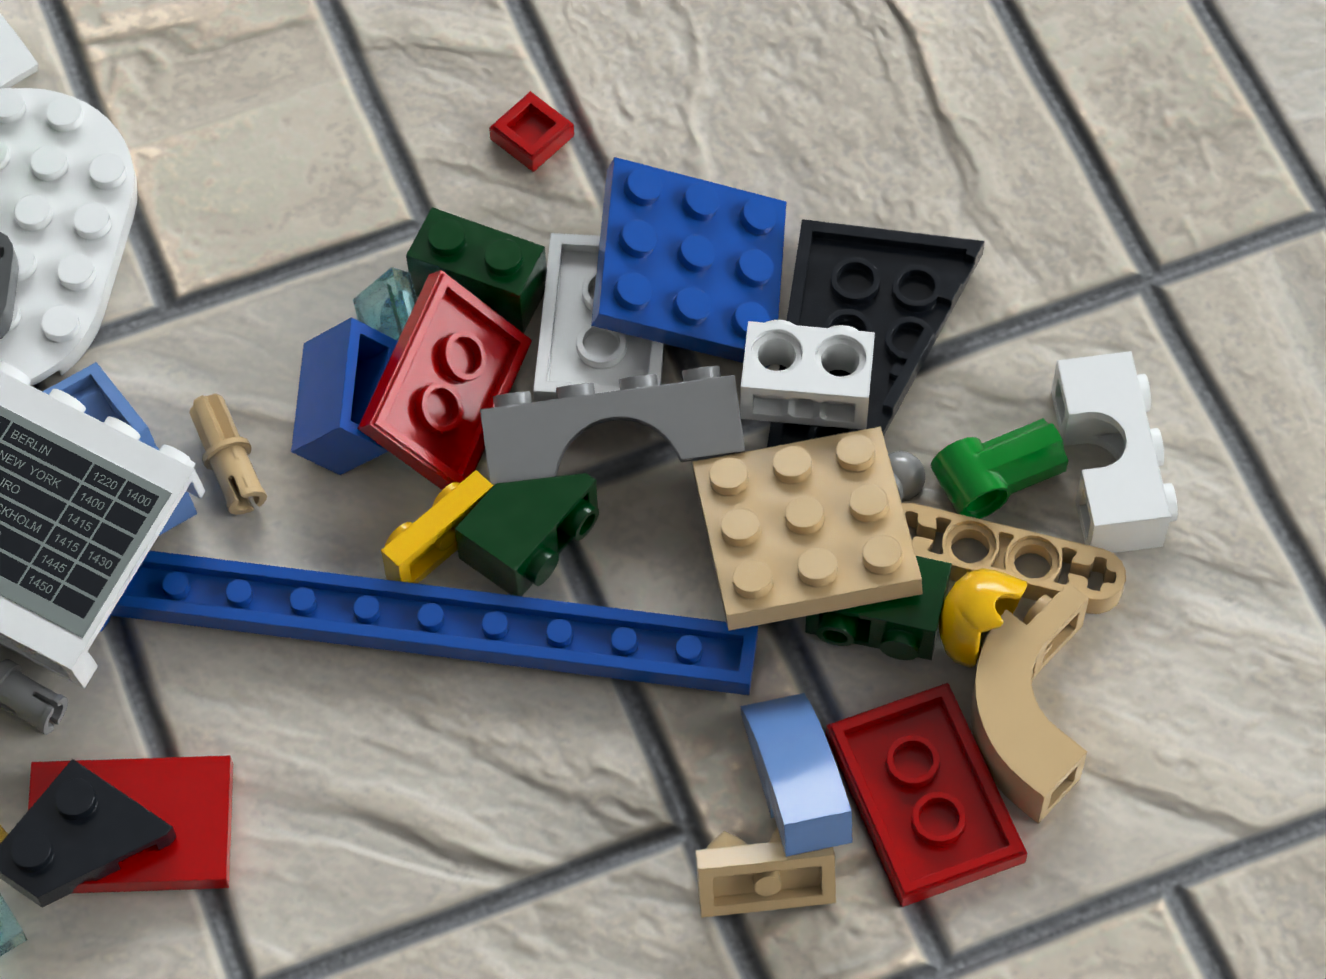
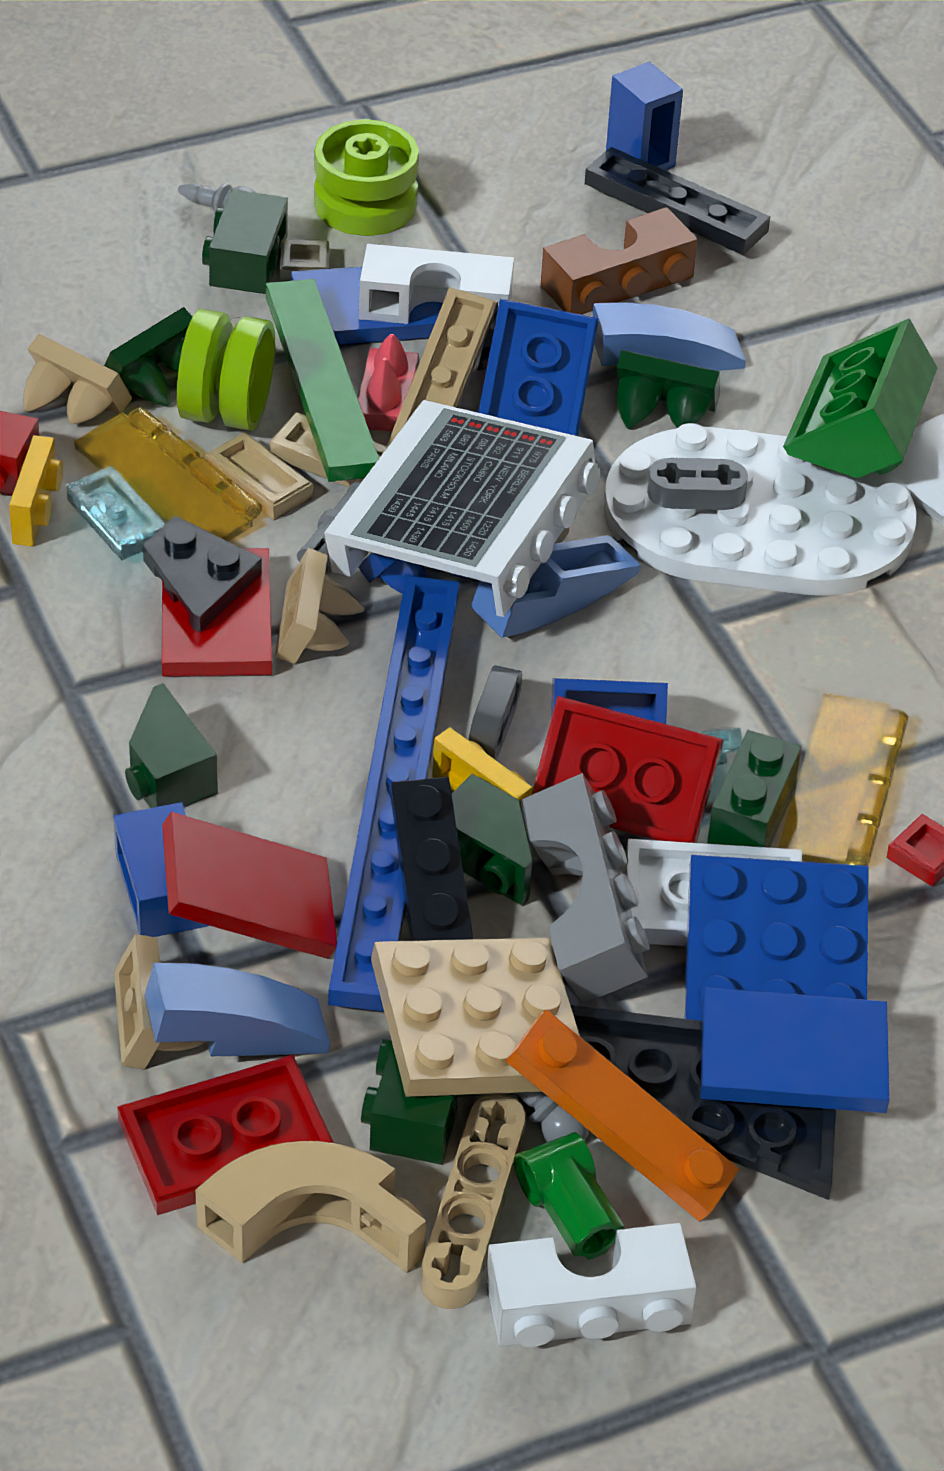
camera: 85 degrees right, 15 degrees down
(143, 719) = (306, 600): none -> tan tile
(226, 454) = (559, 648): tan axle -> none
(327, 517) = (496, 709): none -> dark grey beam
(385, 863) = (169, 755): none -> dark green slope
(400, 191) = (844, 781): none -> clear yellow windscreen
(570, 861) = (142, 866): none -> blue piece
(603, 573) = (430, 860): none -> black plate
(615, 760) = (248, 885): none -> red tile
(805, 389) = (646, 1015): white brick -> none
(833, 249) = (794, 1050): none -> blue tile
(926, 404) = (622, 1115): none -> orange plate
(974, 608) = (406, 1149): yellow hair -> none

